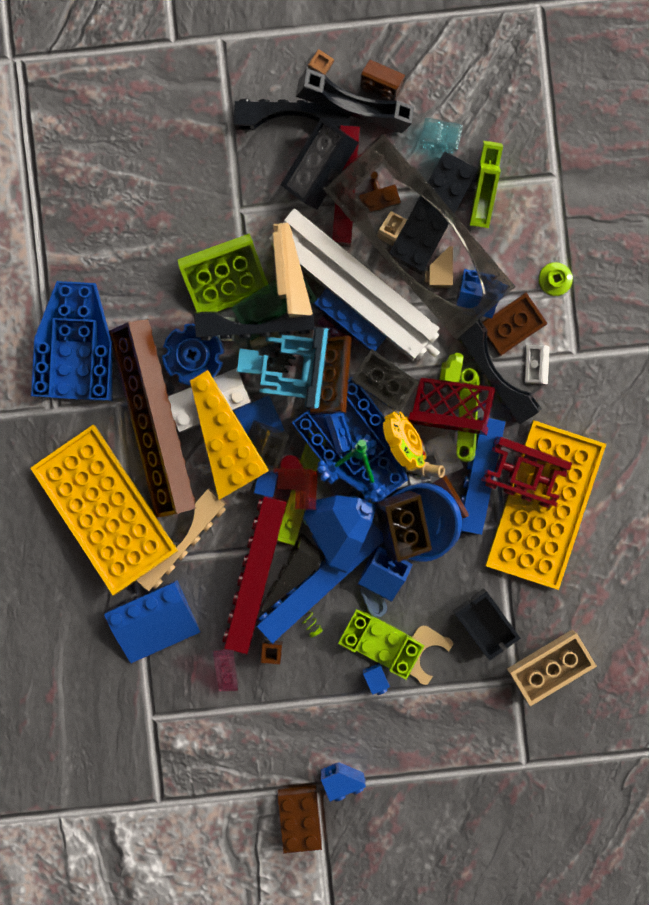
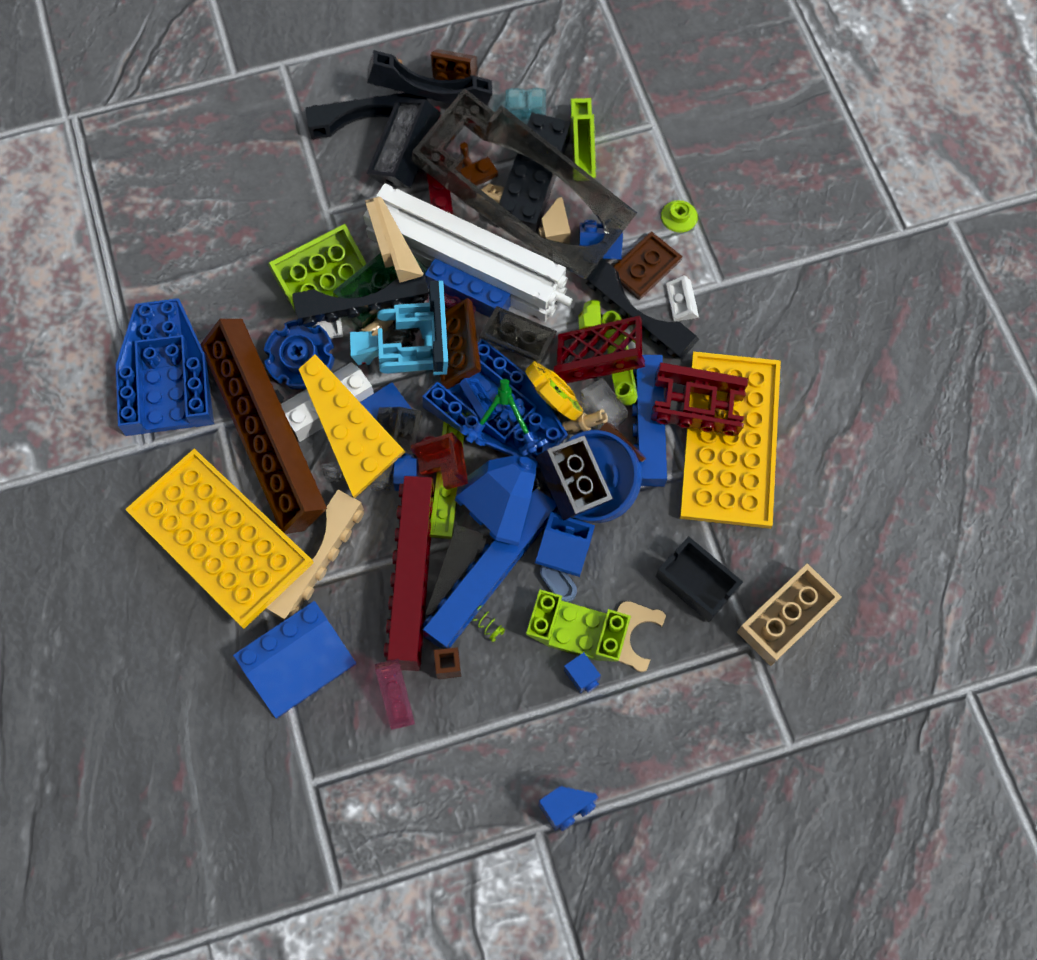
camera: 10 degrees left, 20 degrees down
(299, 819) = (524, 872): reddish brown brick -> none

